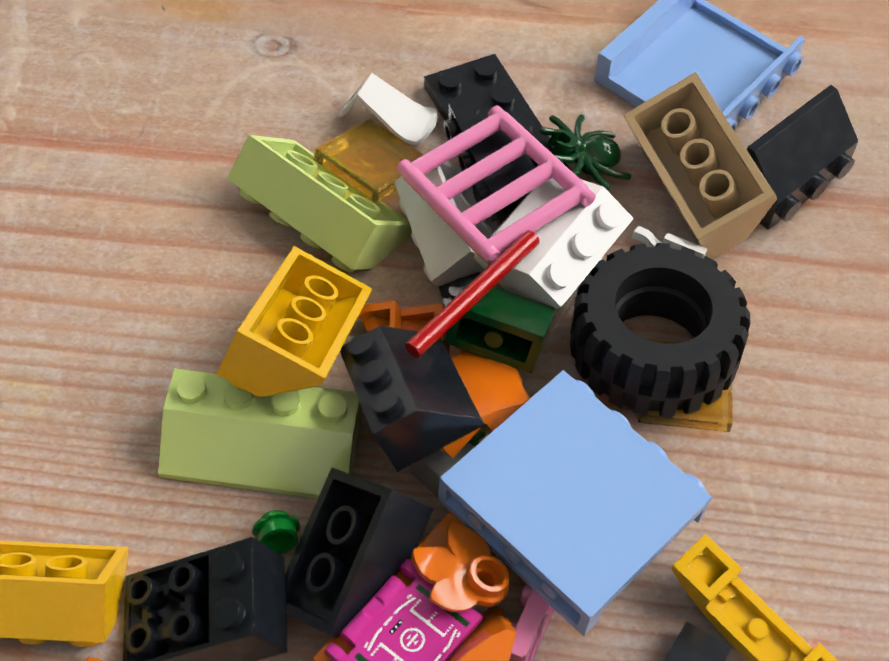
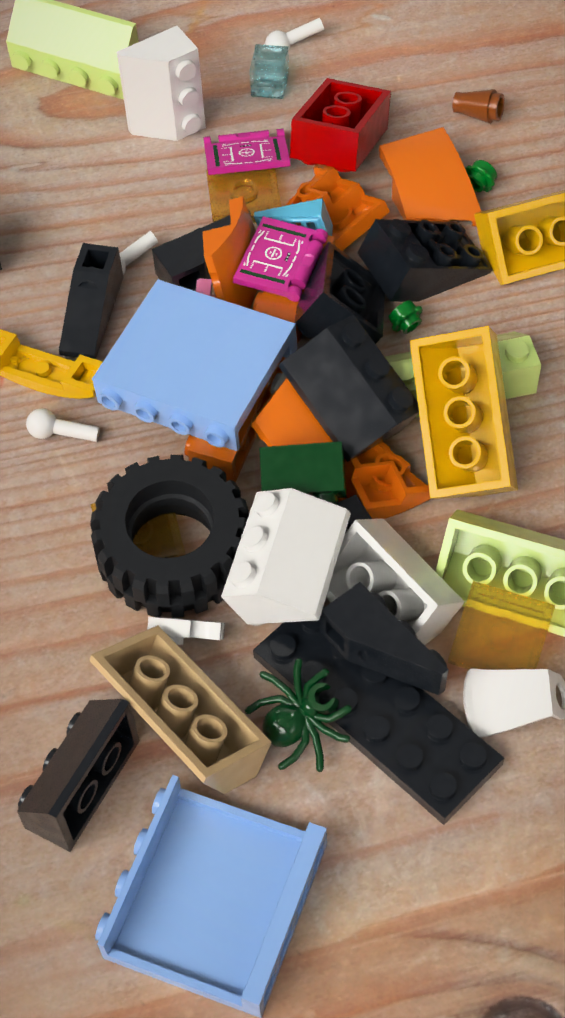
camera: 165 degrees right, 0 degrees up
(459, 570) = (260, 291): orange plate -> none
(471, 294) = (328, 451): red bar -> none
(521, 144) = (349, 619): bright pink bar -> none
(770, 543) = (42, 424): none -> white bar

